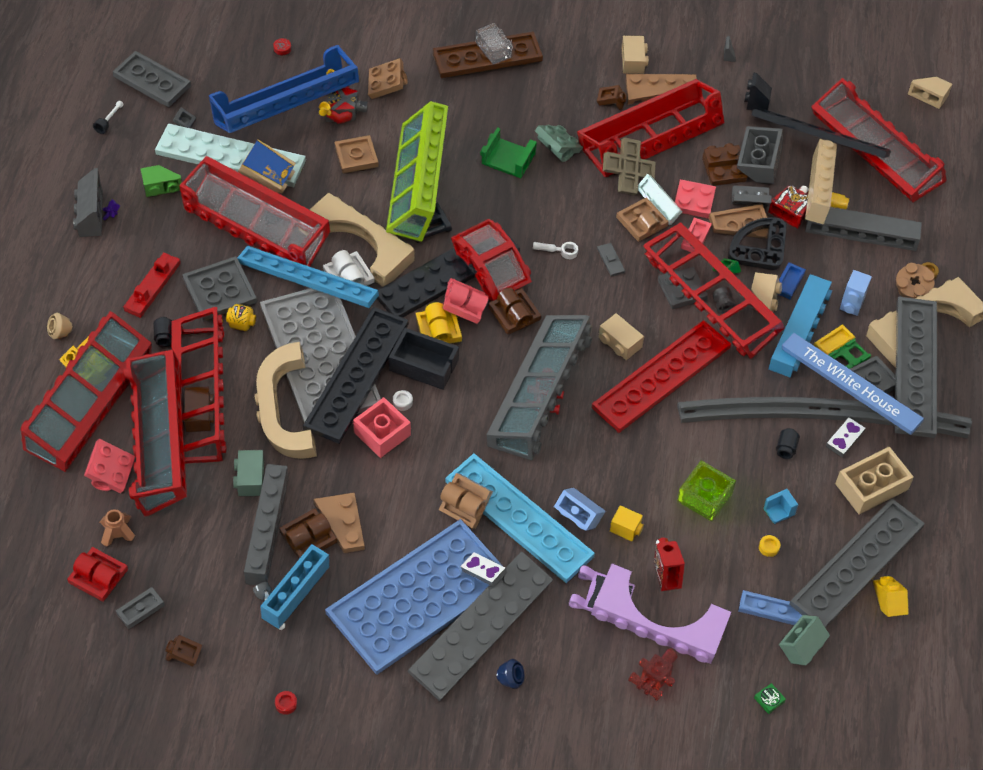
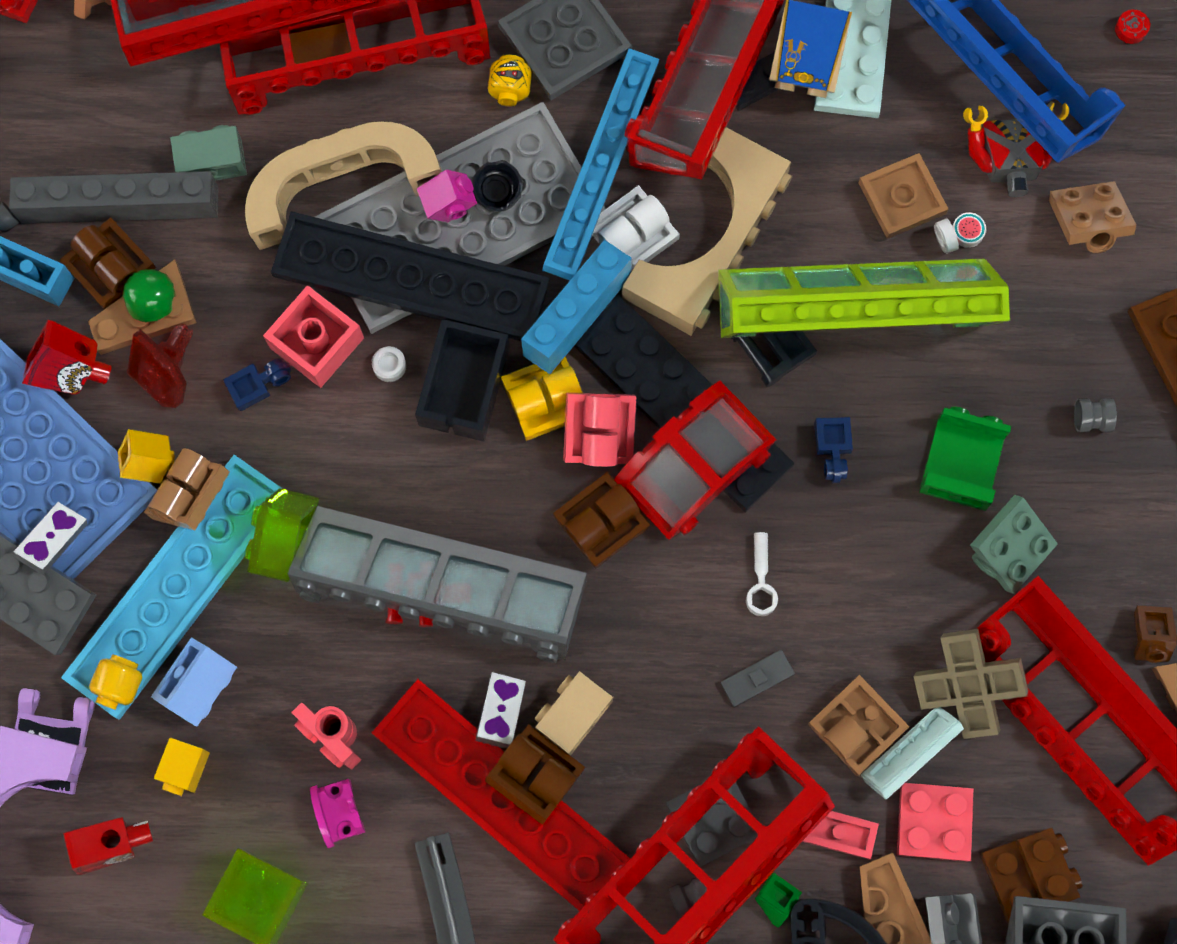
camera: 85 degrees right, 20 degrees up
(312, 322) = (497, 186): none -> black hair
(314, 344) = (447, 196): none -> dark pink brick
(337, 508) = (148, 295): none -> green hair
(371, 556) = (63, 360): none -> red torso
(381, 132) = (969, 229): none -> tile
(384, 139) = (946, 236): none -> white tile
(386, 507) = (158, 366): none -> clear red piece
(395, 295) = (576, 307): none -> dark azure brick
(402, 467) = (249, 386): none -> dark blue plate
(440, 519) = (145, 456): none -> yellow brick
(487, 205) = (832, 439): none -> dark blue plate
(496, 95) = (1095, 415): none -> dark grey wheel
(502, 448) = (278, 532): none -> clear neon green brick
(575, 544) = (115, 681): none -> yellow head
(615, 368) = (500, 710): none -> tile
(620, 442) = (316, 728): none -> coral plate
(654, 350) = (534, 774): none -> reddish brown plate
(659, 451) = (336, 812): none -> dark pink piece

